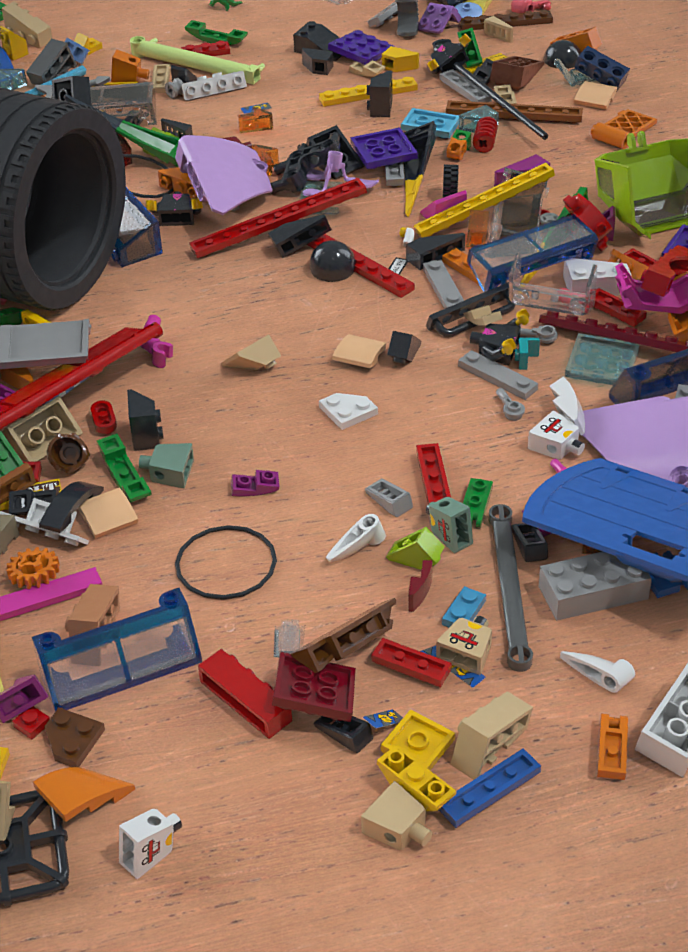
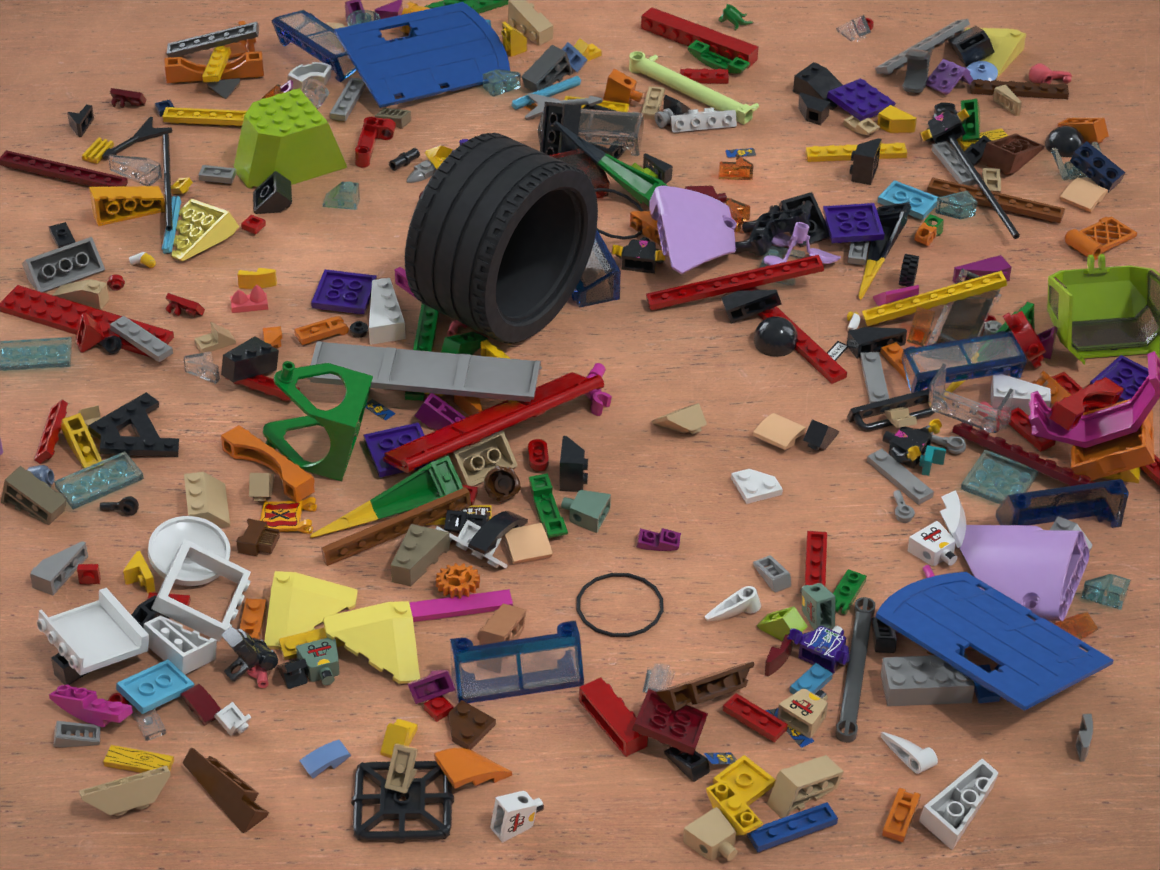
camera: 10 degrees right, 0 degrees up
(179, 16) = (687, 32): none -> red brick
(467, 567) = (822, 646): none -> dark purple torso
(485, 134) = (958, 223): red piece -> none

